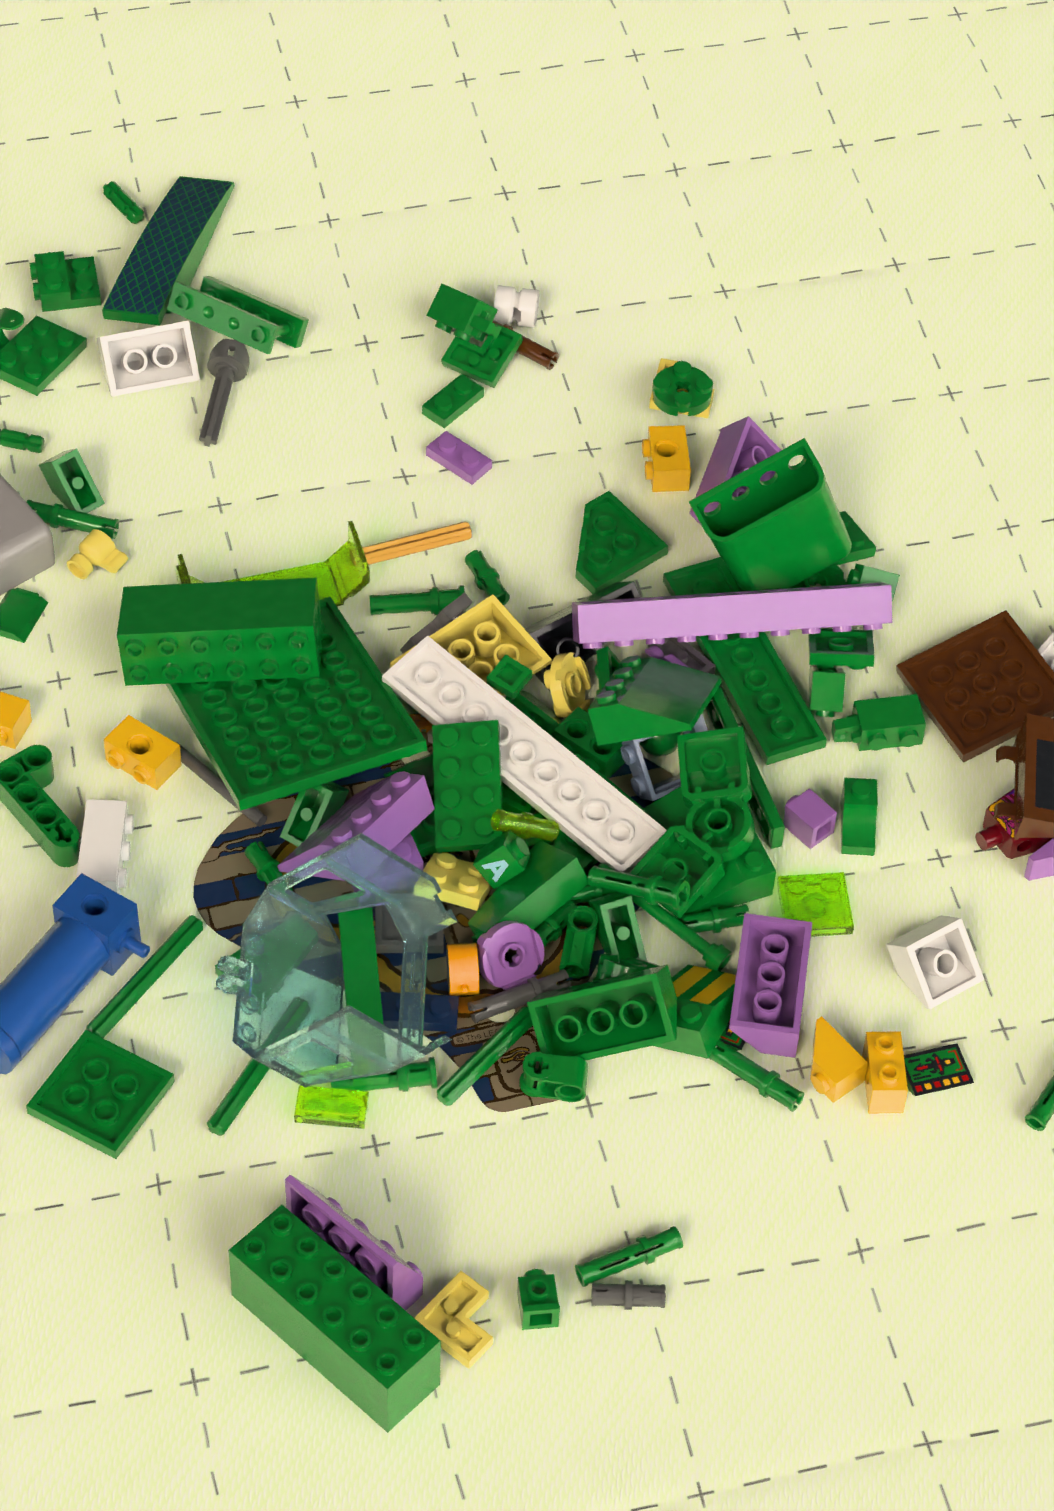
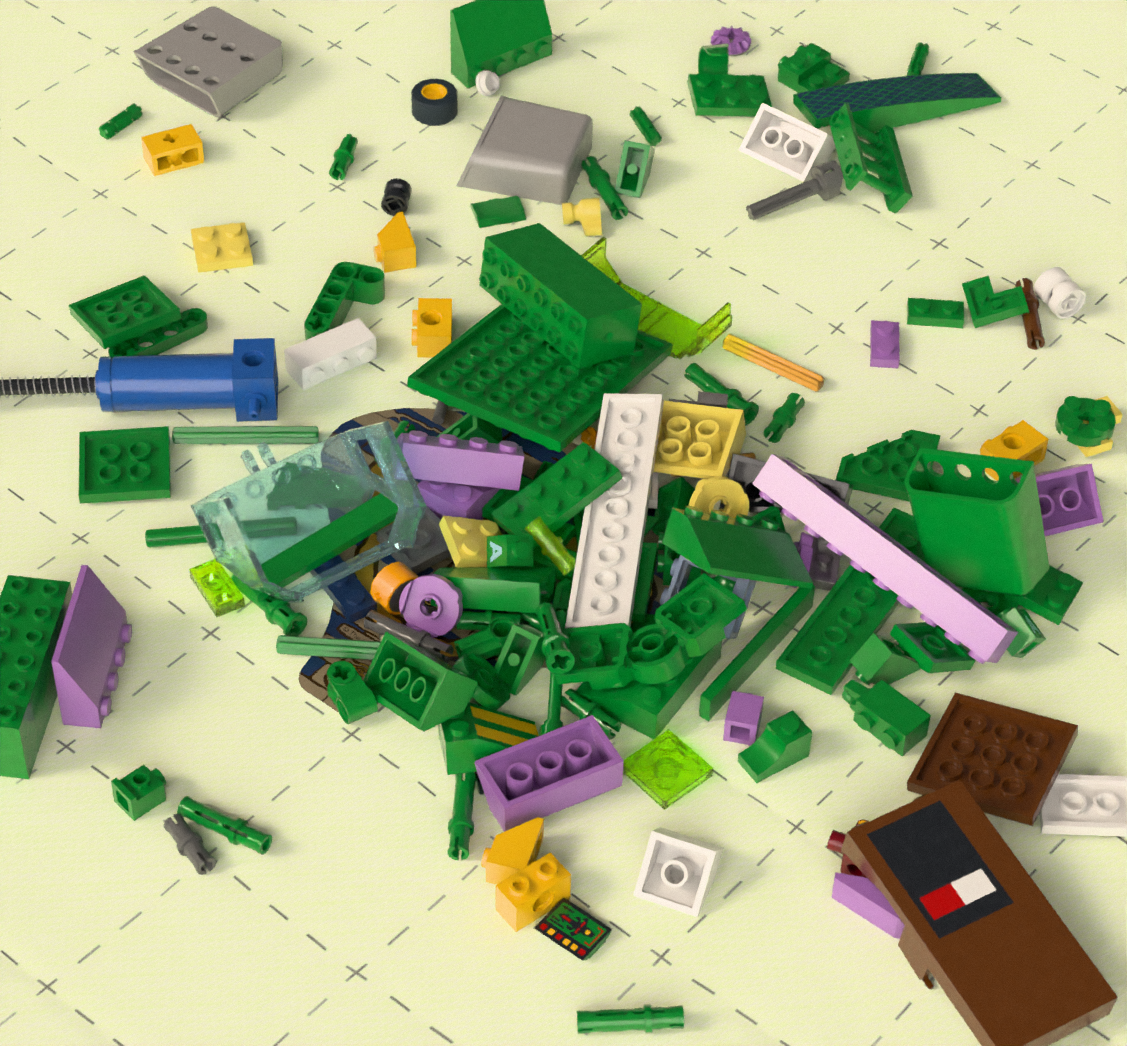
camera: 55 degrees right, 5 degrees down
(449, 1319) = (84, 746): light yellow plate -> none
(463, 314) = (1010, 265): green hinge -> none
(509, 677) = (675, 460): green plate -> none

